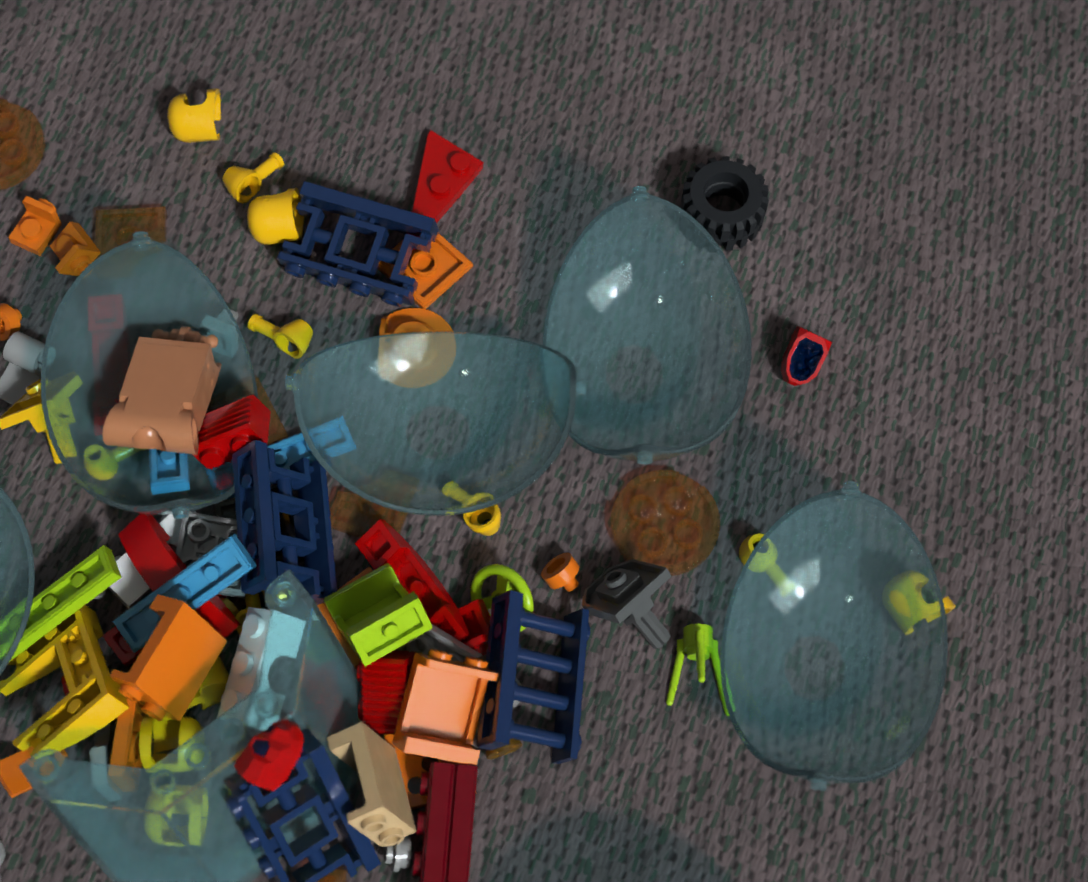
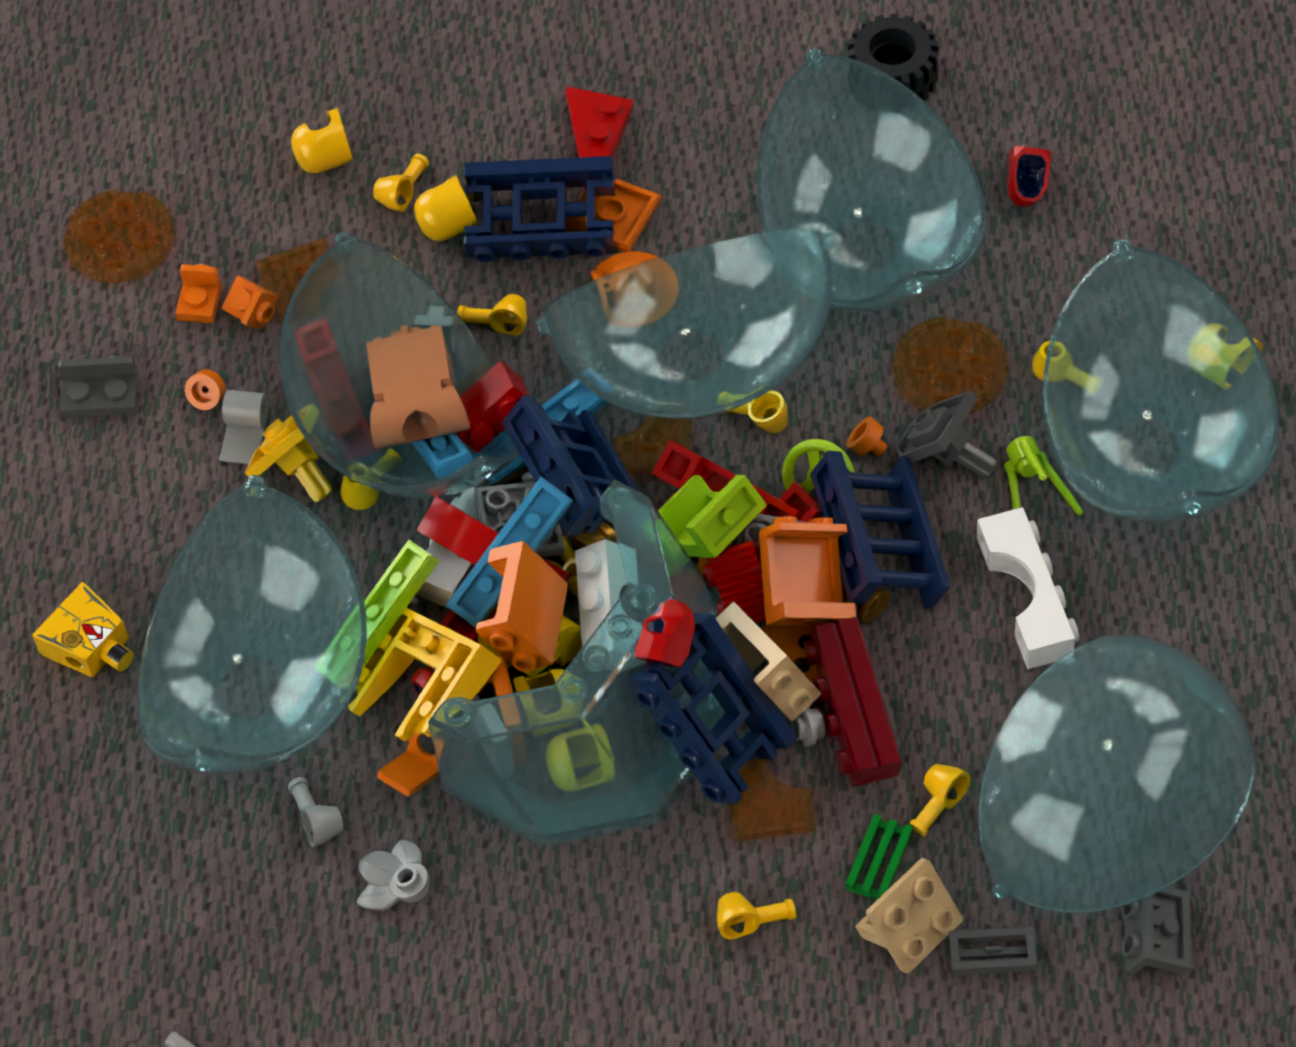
camera: 10 degrees left, 10 degrees down
(648, 829) = (1012, 547): none -> white arch

